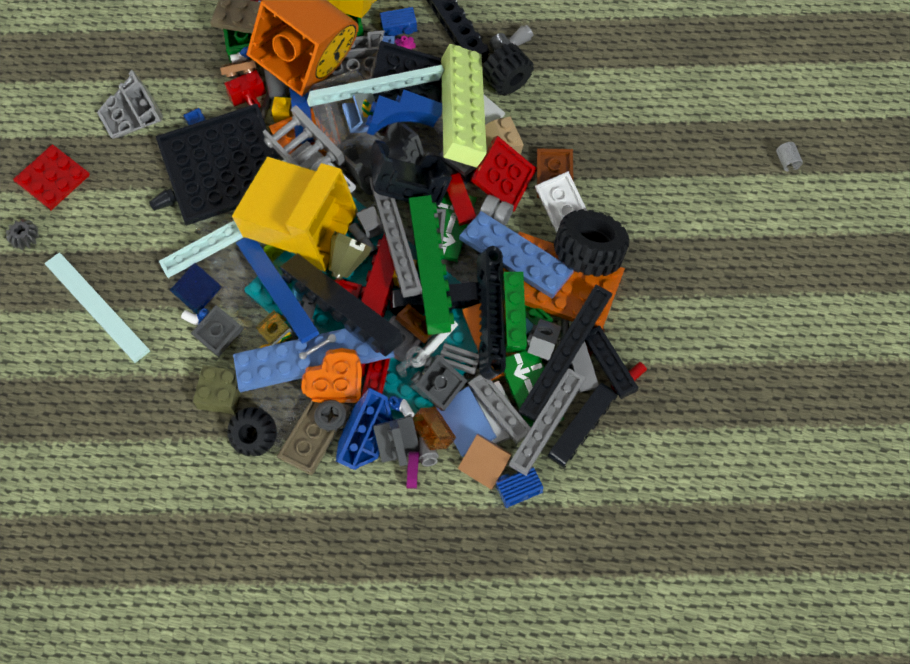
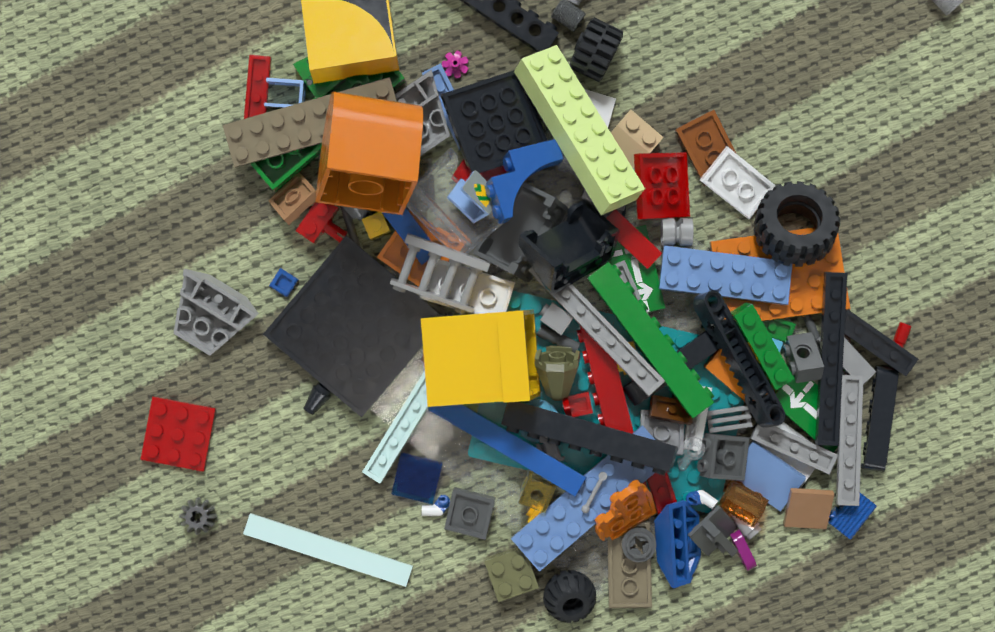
camera: 30 degrees left, 25 degrees up
(241, 56) = (293, 181): white arm -> none
(375, 85) = (475, 161): light aqua tile -> none
(398, 21) = (433, 41): blue brick -> none

